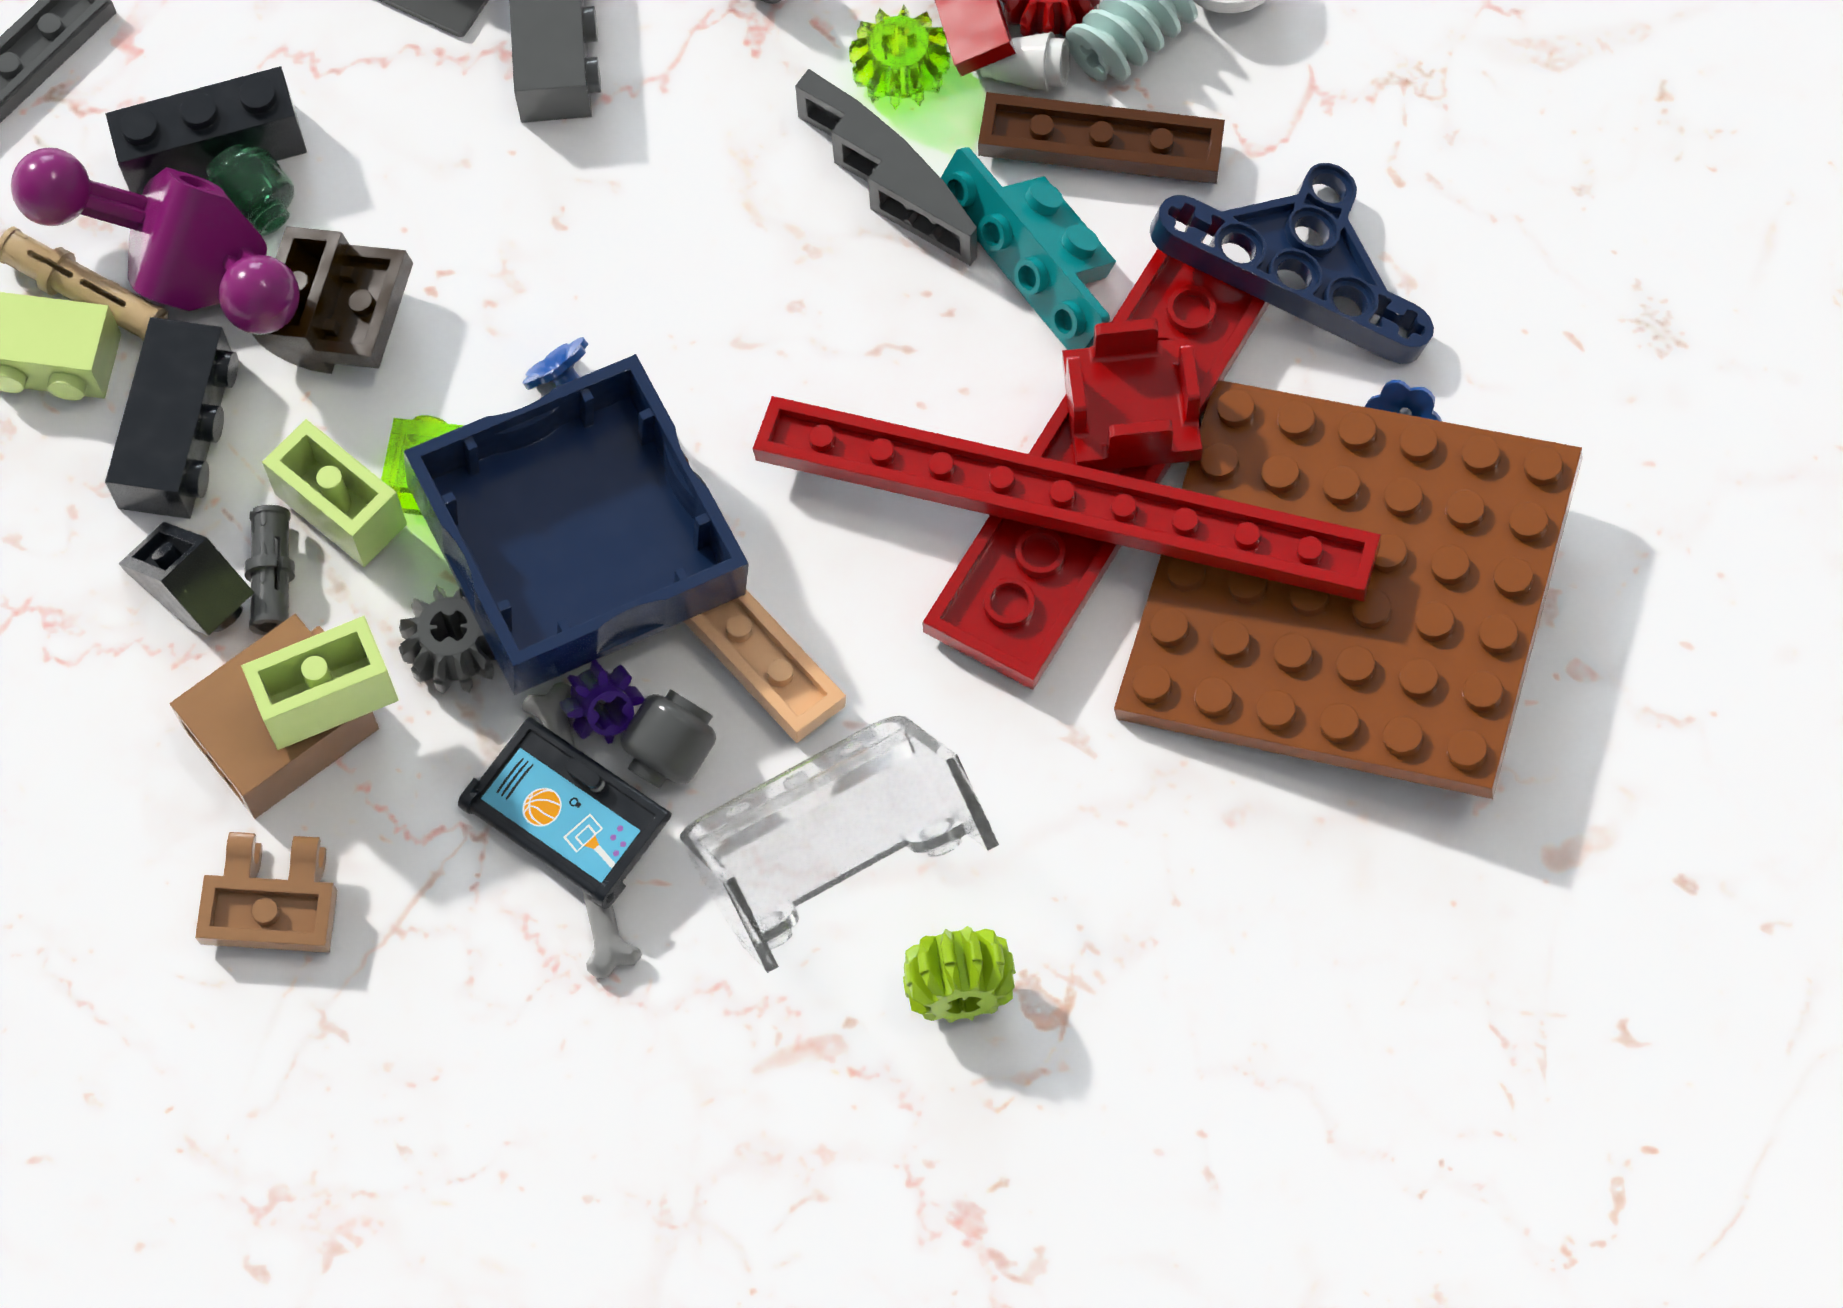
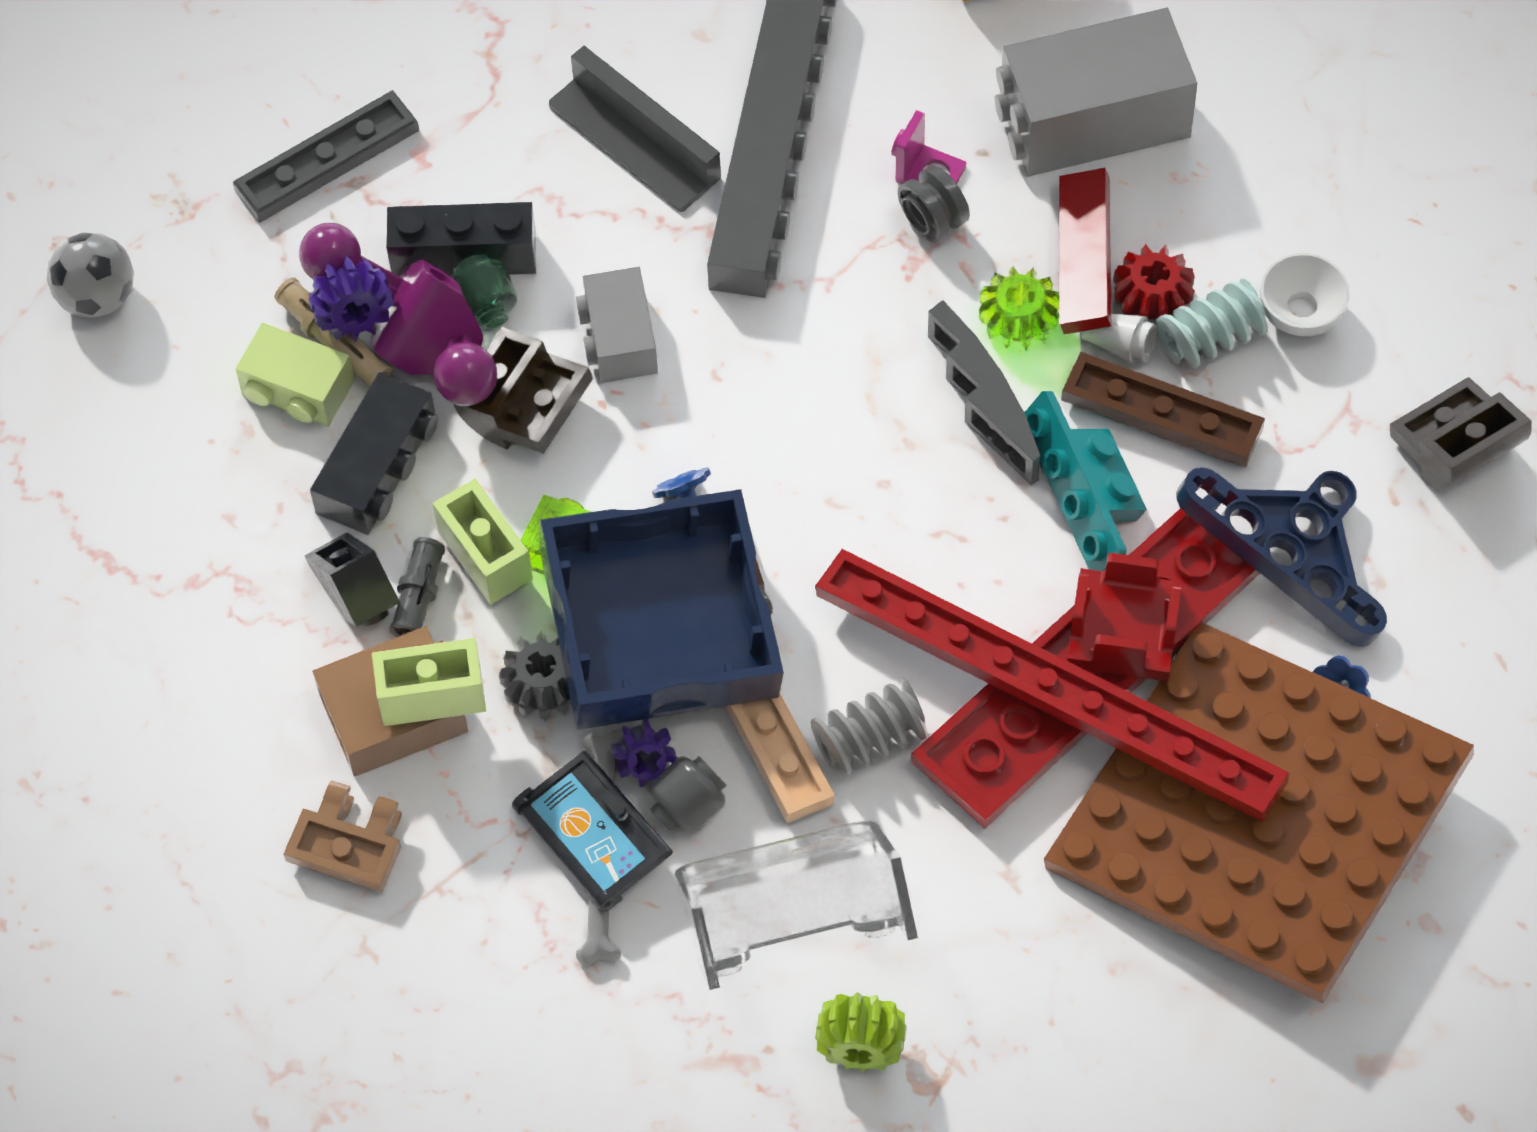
camera: 15 degrees right, 5 degrees down
(92, 236) = (351, 299): none -> dark purple gear
(426, 189) = (619, 325): none -> light grey brick
(863, 601) = (869, 726): none -> light grey piece
(1455, 83) = (1460, 432): none -> brick

